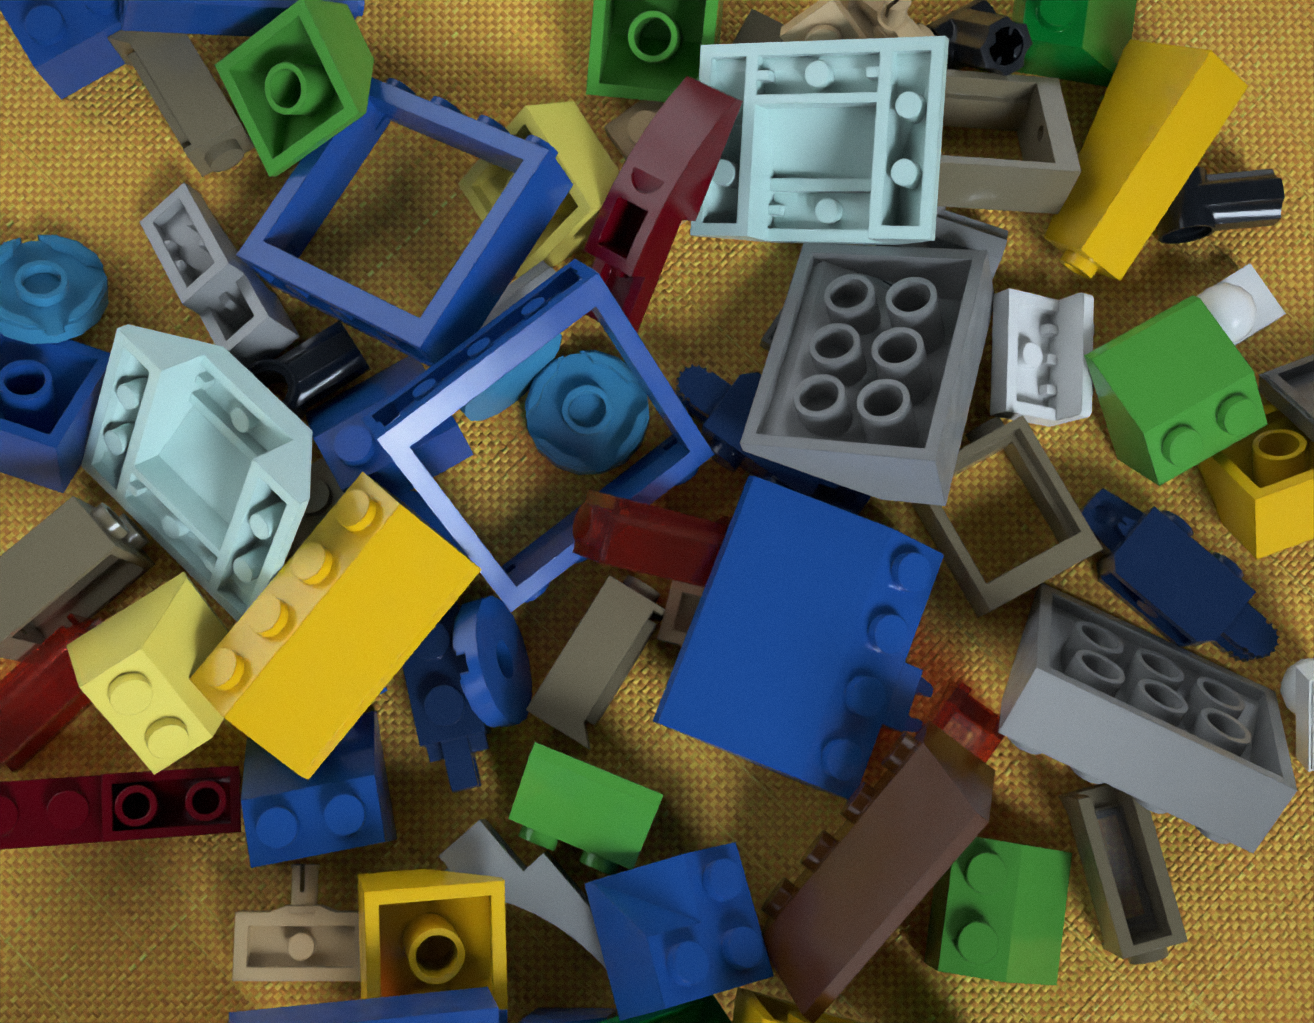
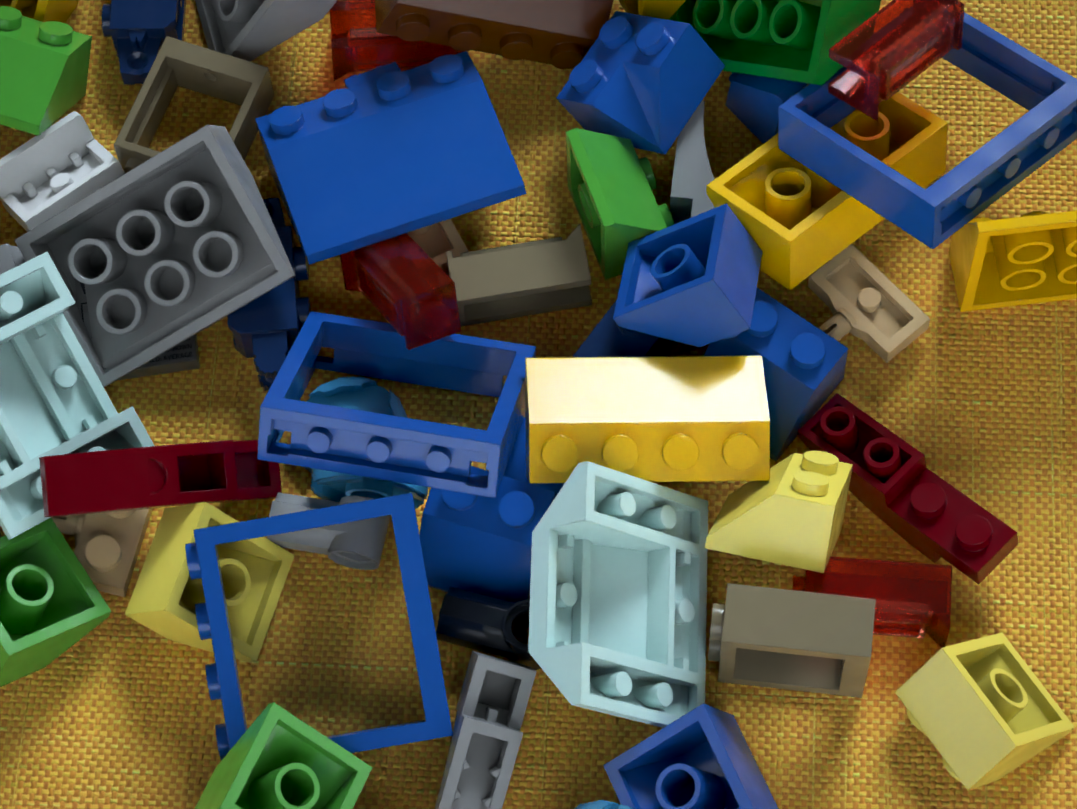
camera: 125 degrees left, 15 degrees down
(424, 777) = (691, 280): none -> blue slope
(497, 662) = (584, 319): blue tile -> none

